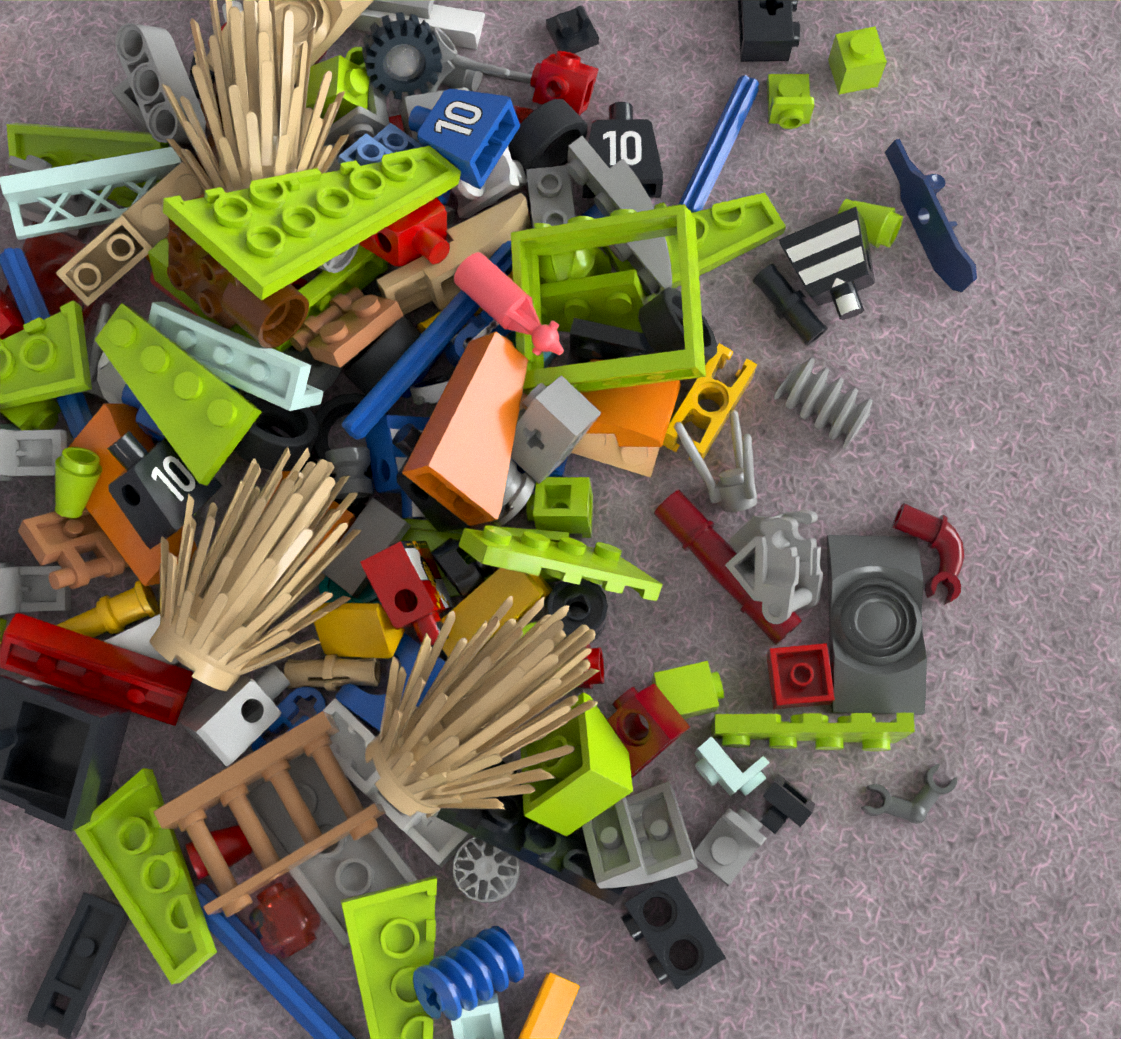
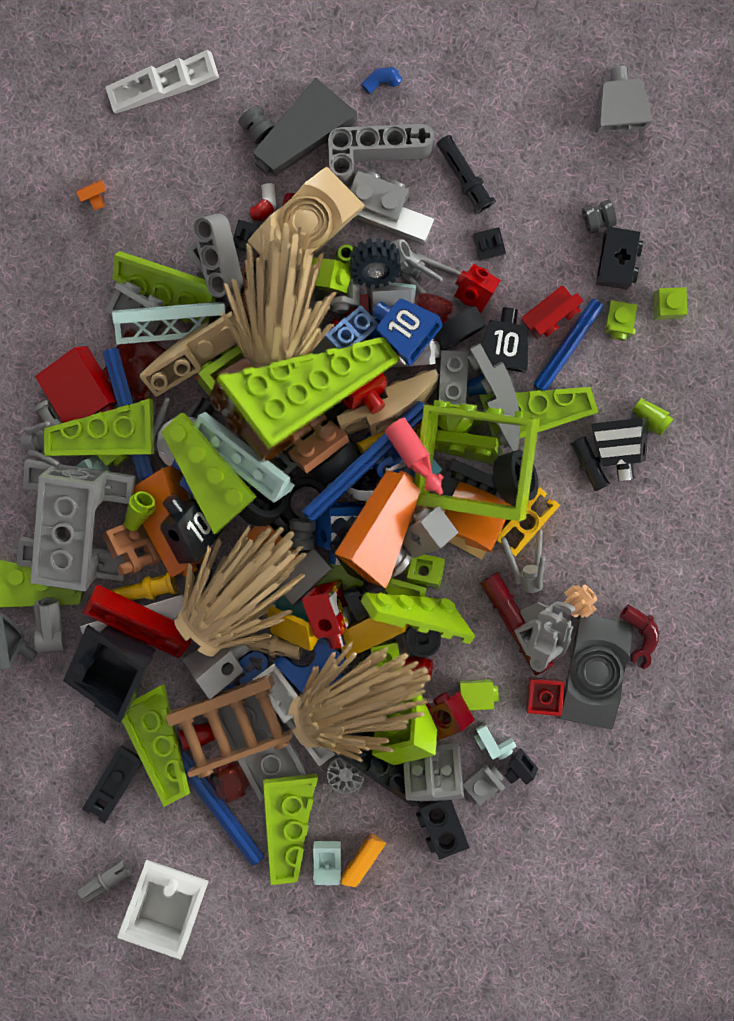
camera: 10 degrees right, 15 degrees up
(468, 974) = (327, 830): blue piece -> none
(687, 100) = (550, 311): none -> red bracket
(824, 401) = (598, 532): light grey piece -> none
(828, 506) = (582, 599): none -> light nougat gear
(858, 727) = (550, 731): lime wing -> none
(917, 809) = (596, 781): dark grey arm -> none
(929, 220) = (690, 421): dark blue piece -> none

